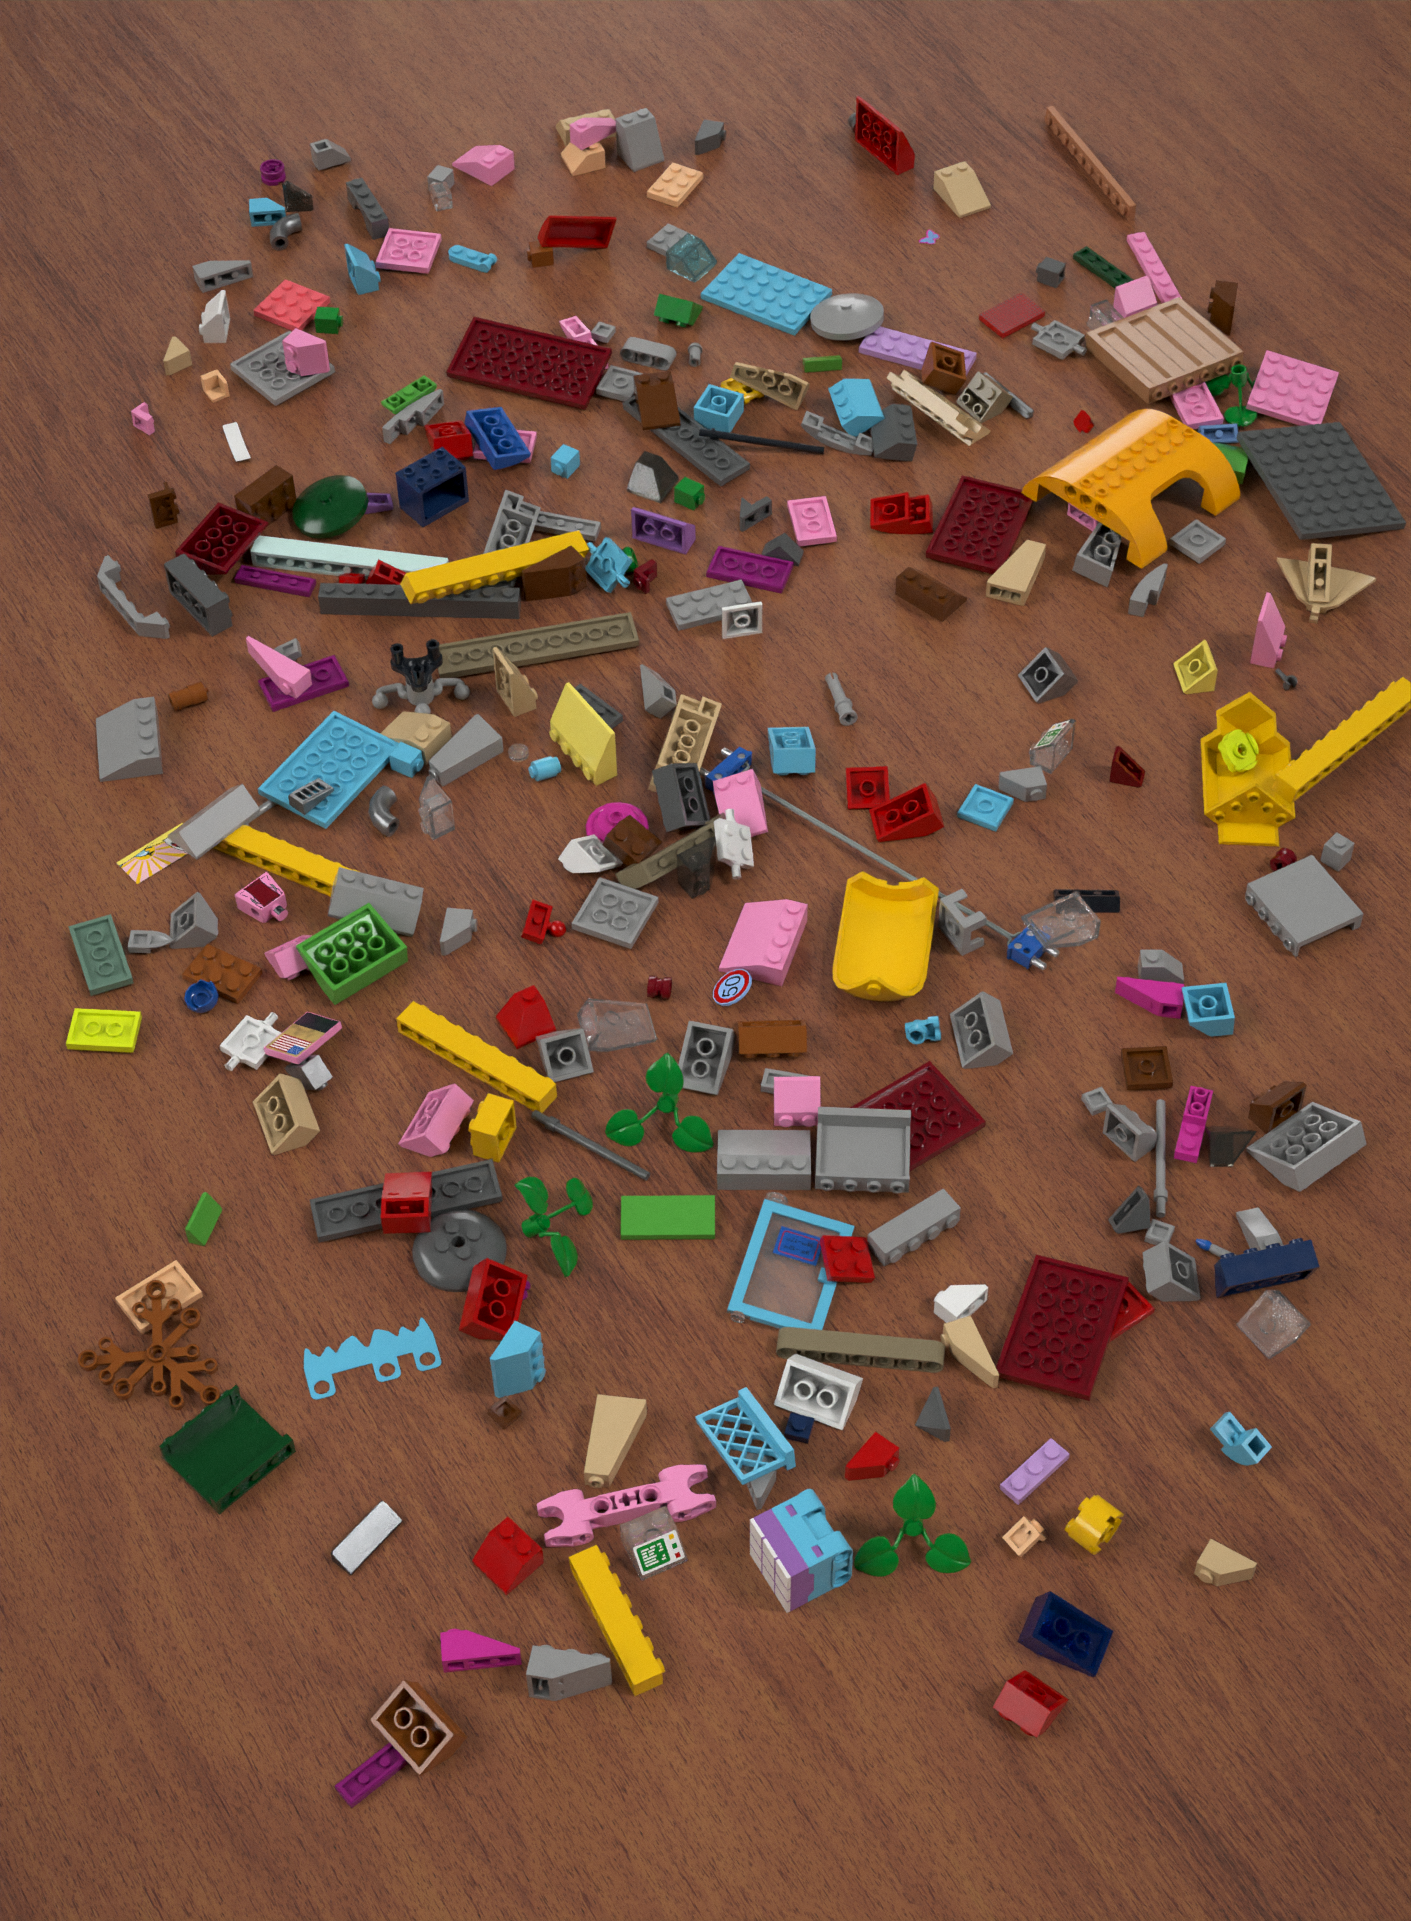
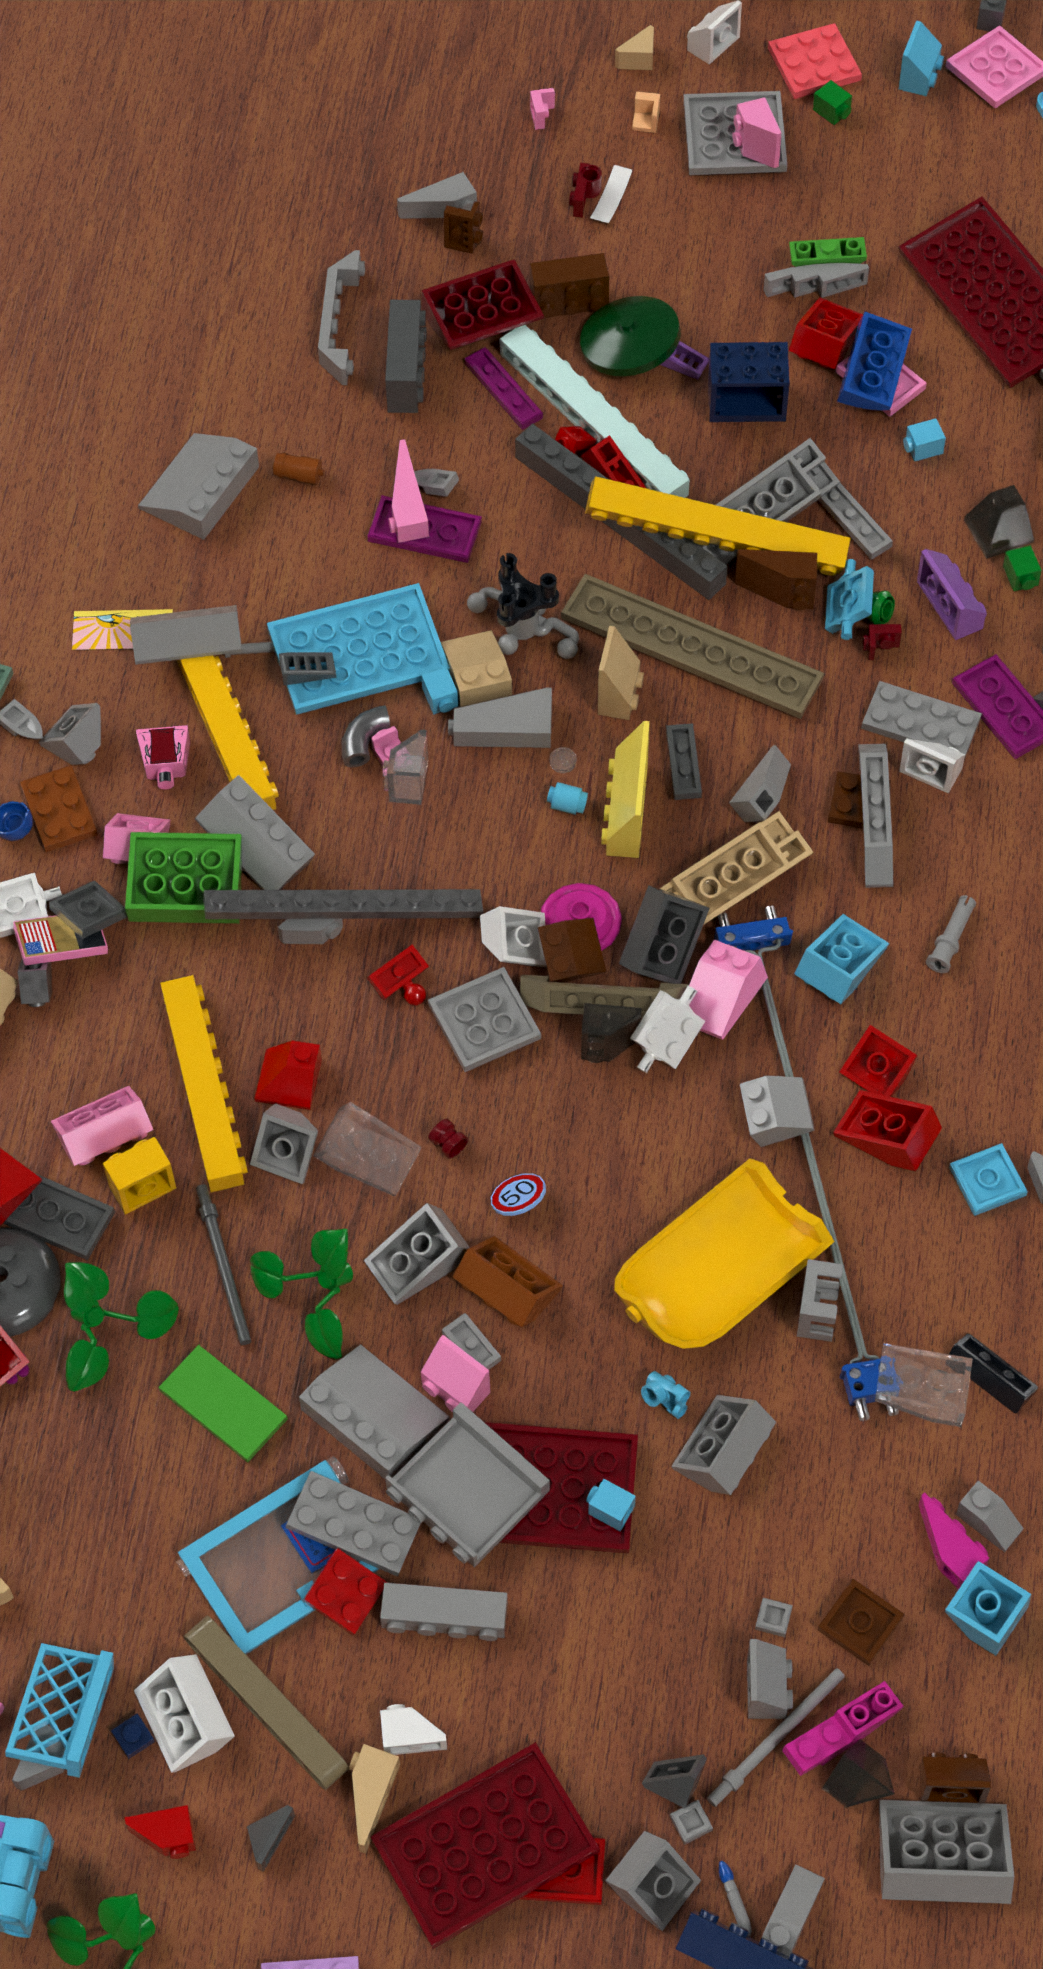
camera: 40 degrees right, 10 degrees up
(129, 502) = (433, 199): none -> light grey slope
(216, 442) = (588, 185): none -> dark red plate
(304, 1012) = (88, 909): none -> dark grey tile
(406, 811) = (383, 742): none -> bright pink bracket
(467, 904) = (342, 904): none -> flat silver plate
(717, 666) = (847, 800): none -> reddish brown plate
(737, 658) = (876, 815): none -> light grey slope
(766, 939) = (605, 1165): bright pink slope -> none
(810, 1218) = (353, 1523): none -> light grey plate
(835, 845) = (776, 1108): none -> light grey slope
(955, 1102) = (610, 1504): none -> medium azure brick

